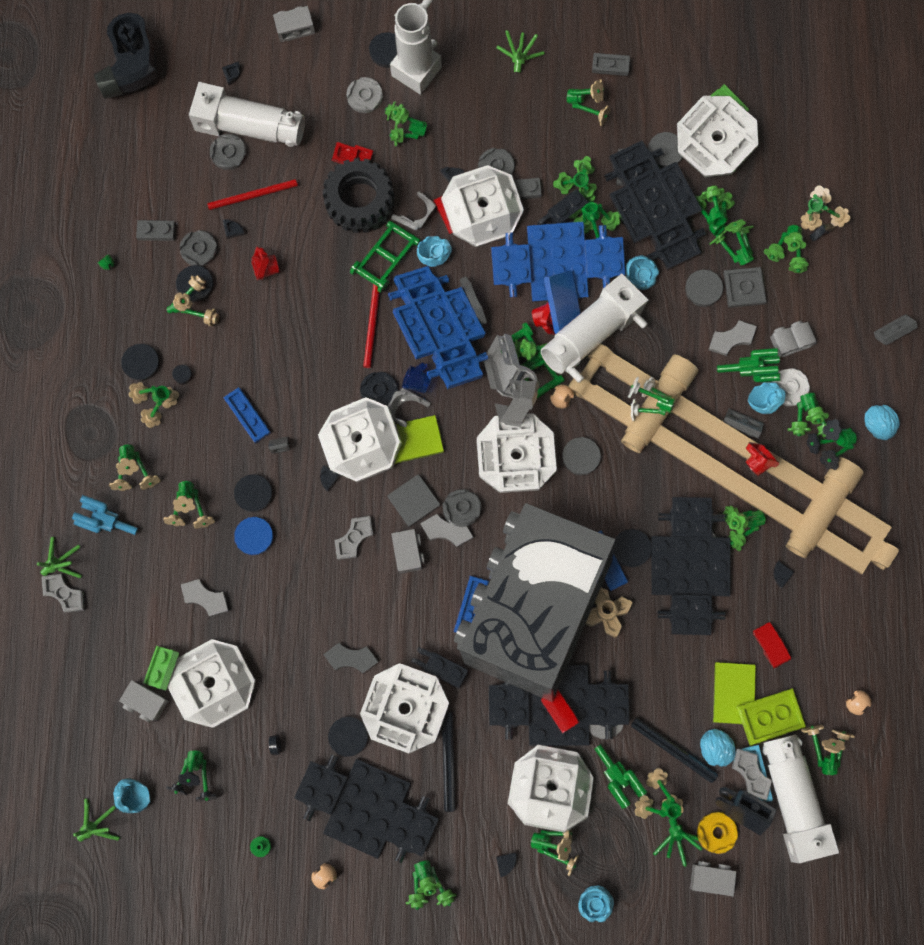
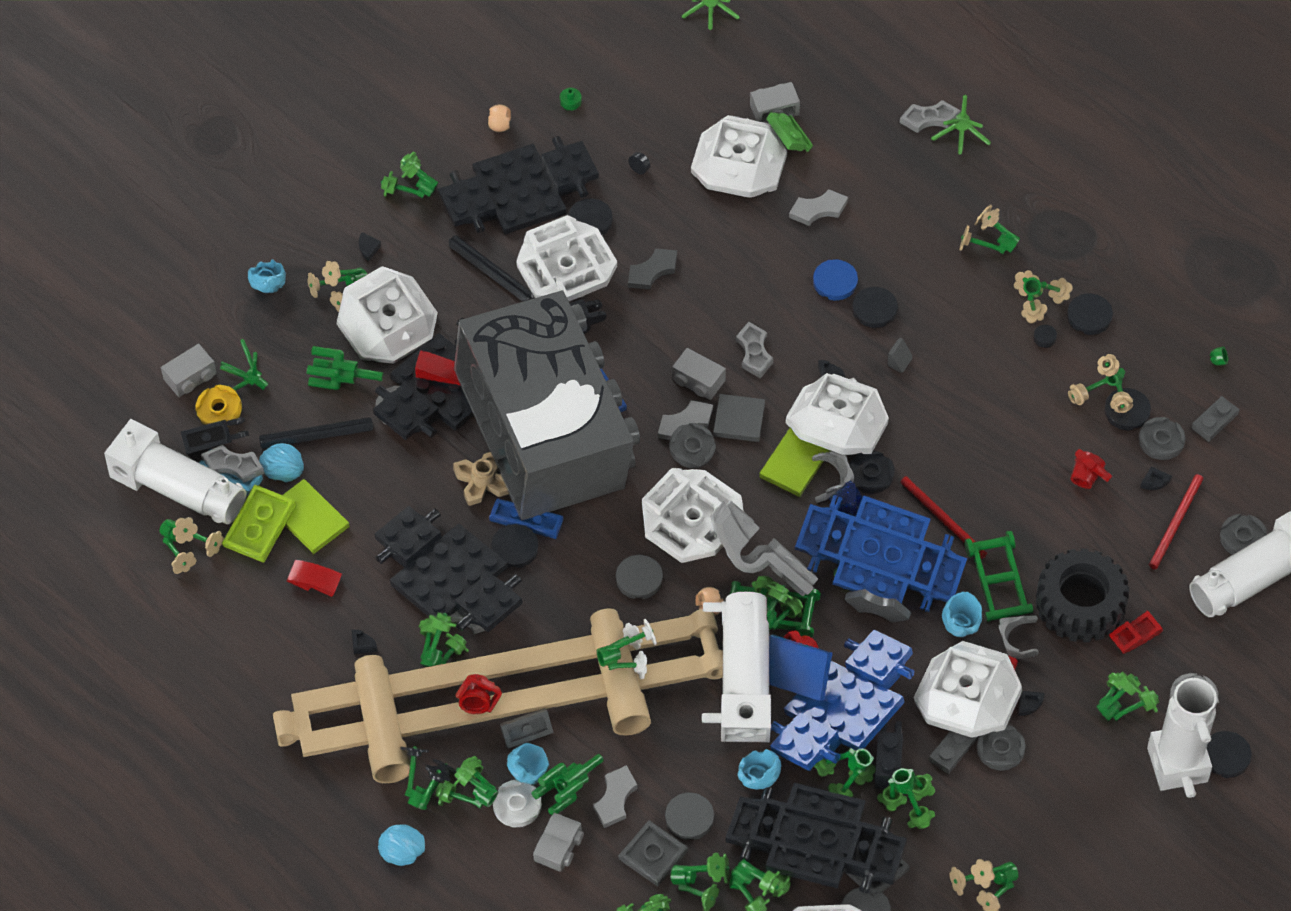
camera: 130 degrees right, 20 degrees down
(100, 518) = (968, 181): dark azure plant -> none
(131, 796) = (705, 39): medium azure hair -> none
(185, 503) = (927, 257): tan plant -> none
(193, 762) = (687, 100): plant -> none
(247, 415) = (954, 356): blue tile -> none
(519, 57) = (1100, 860): bright green plant -> none
(670, 807) = (275, 372): plant -> none
(858, 702) = (193, 596): light nougat piece -> none

